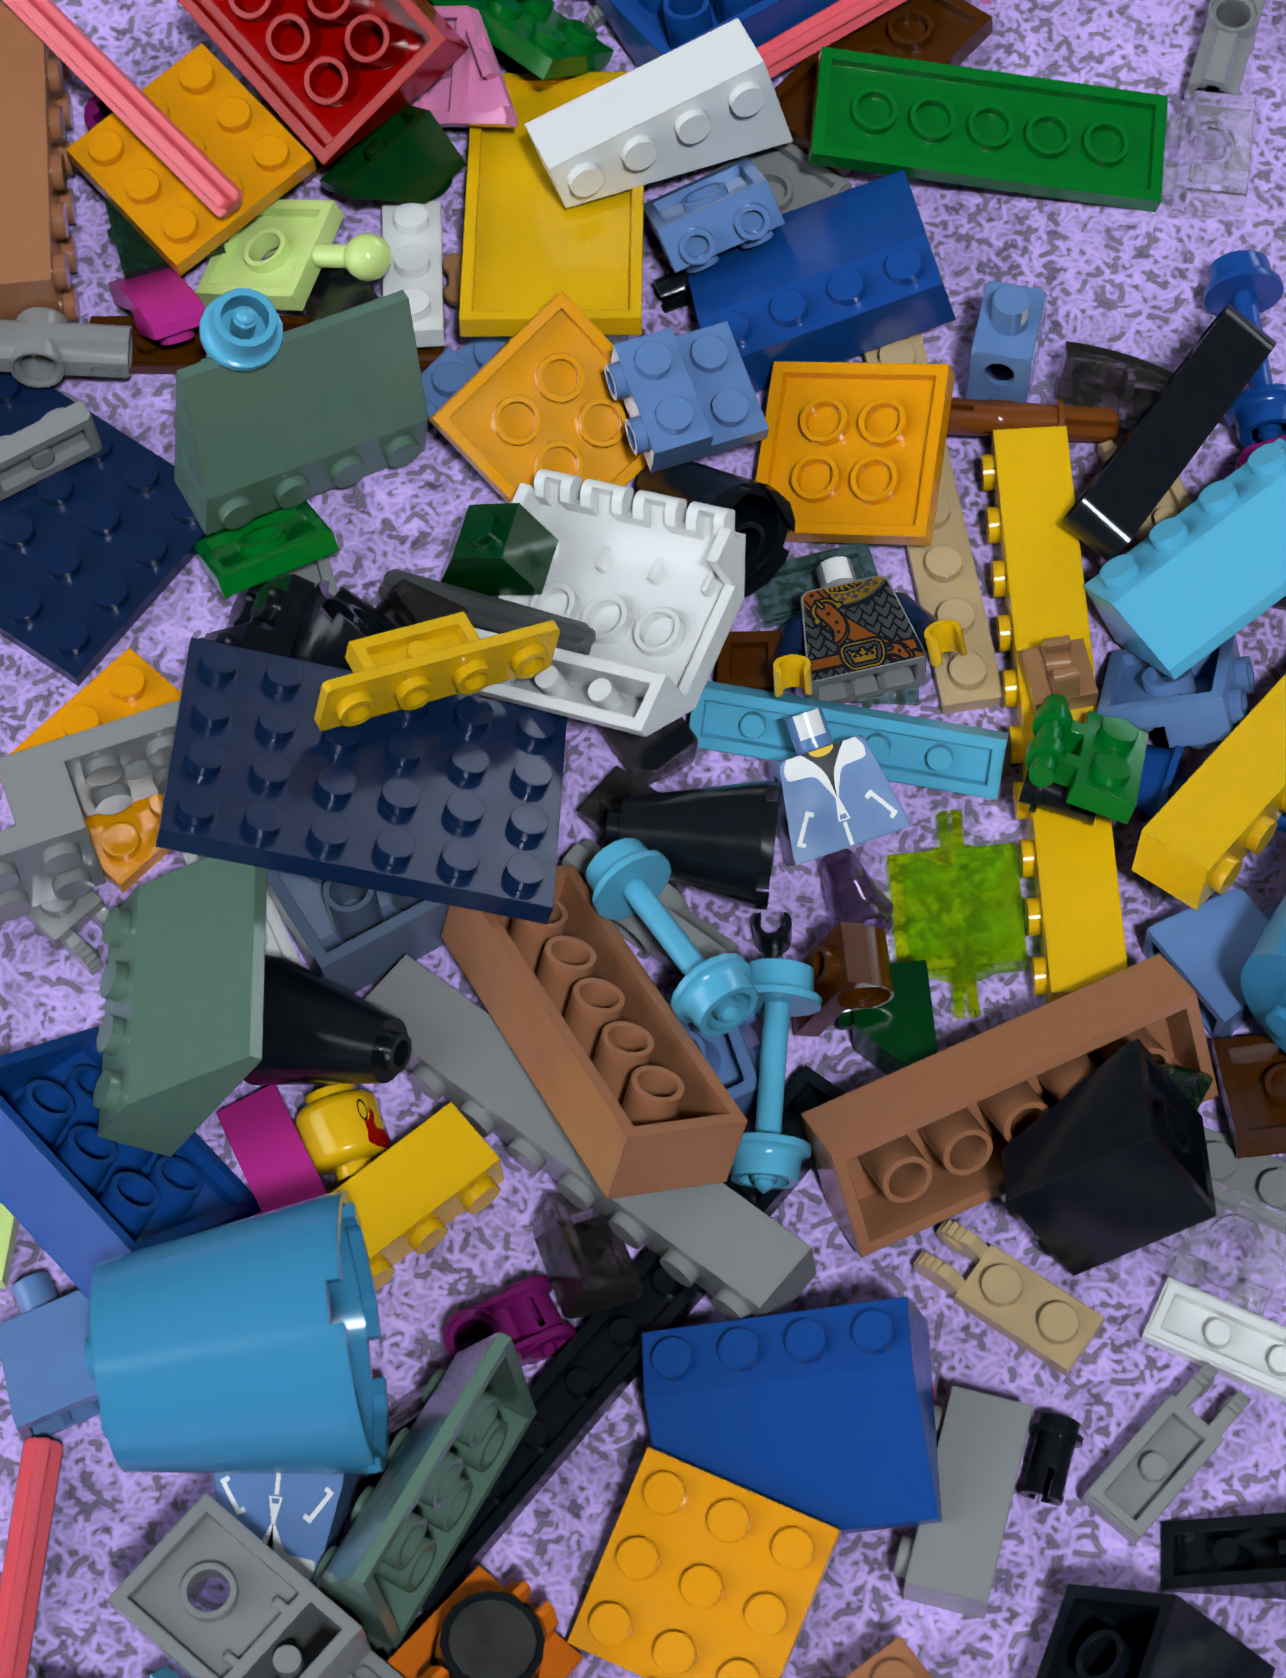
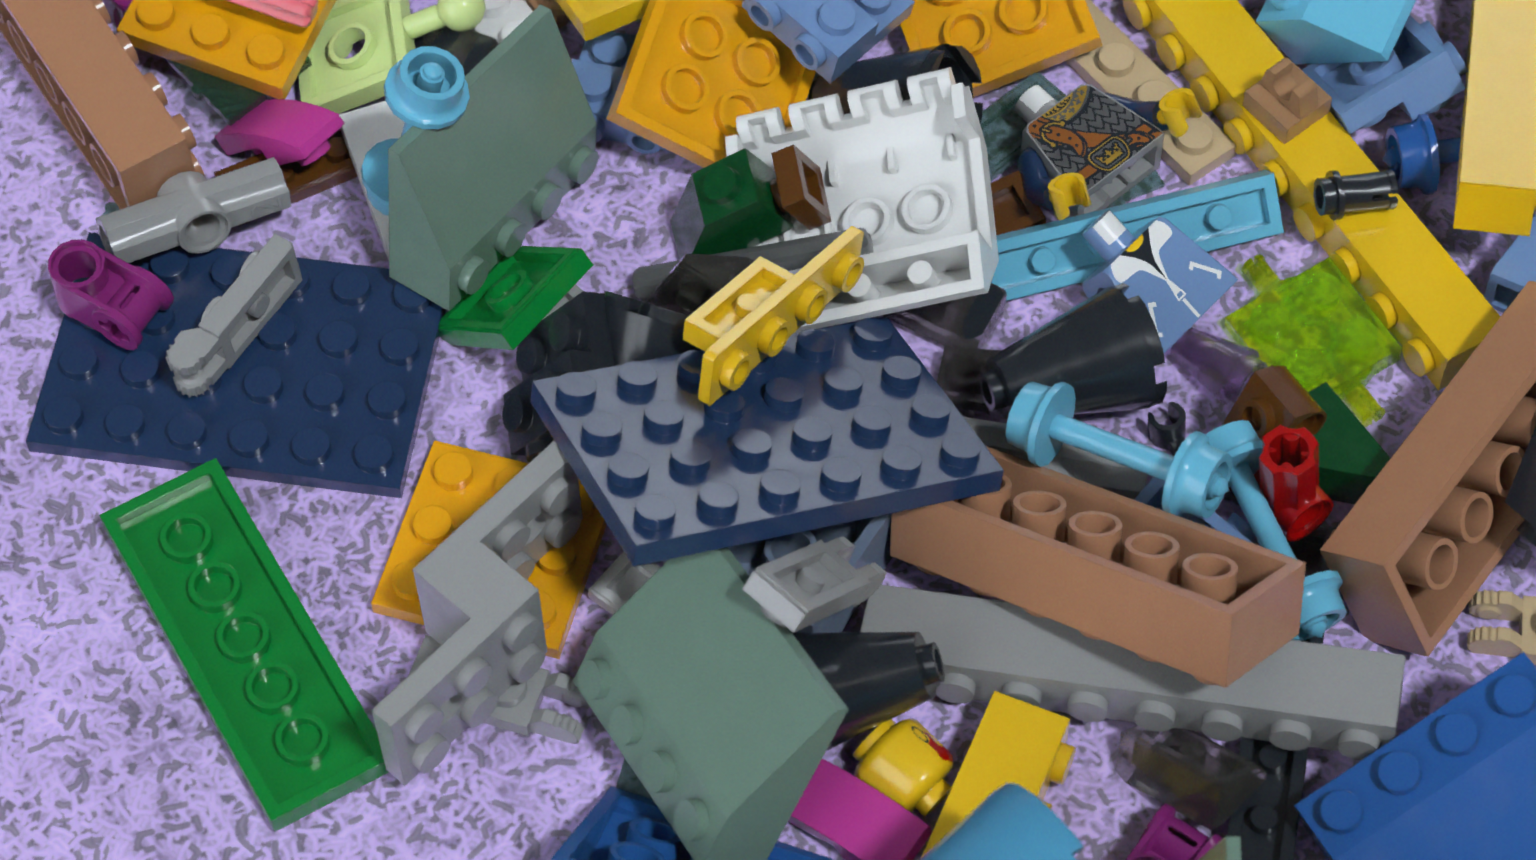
camera: 30 degrees left, 5 degrees down
(318, 932) = (812, 584): none -> light grey hinge
(558, 560) = (799, 187): none -> reddish brown plate
(818, 1040) = (1291, 481): none -> red piece
(1105, 762) = (1366, 148): green plate -> none

